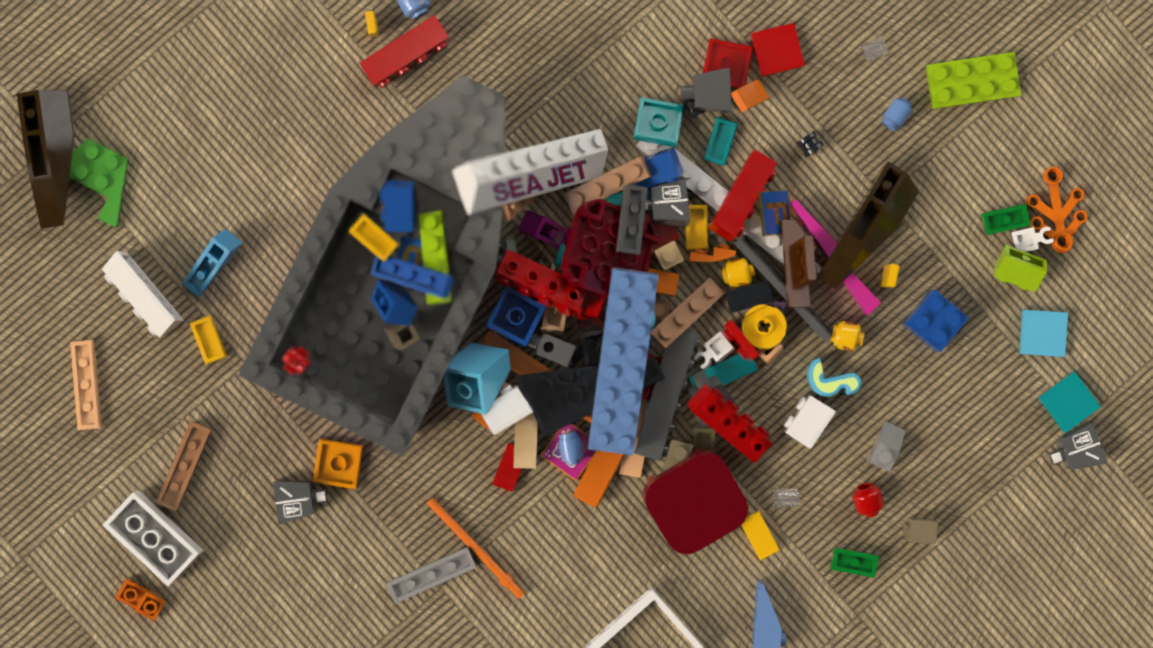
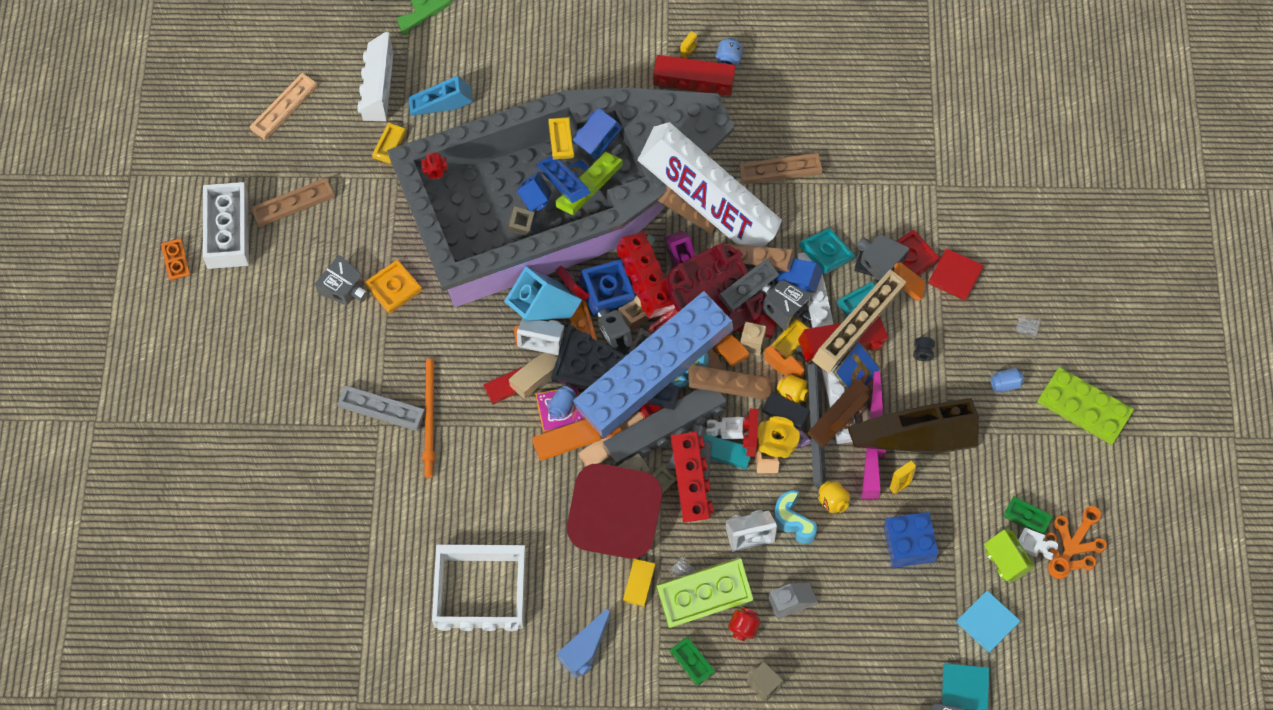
camera: 45 degrees right, 25 degrees down
(485, 338) = (572, 283): none -> red tile
(553, 77) = (780, 168): none -> medium nougat plate
(751, 177) = (859, 321): none -> tan brick
(818, 503) = (704, 592): none -> lime plate

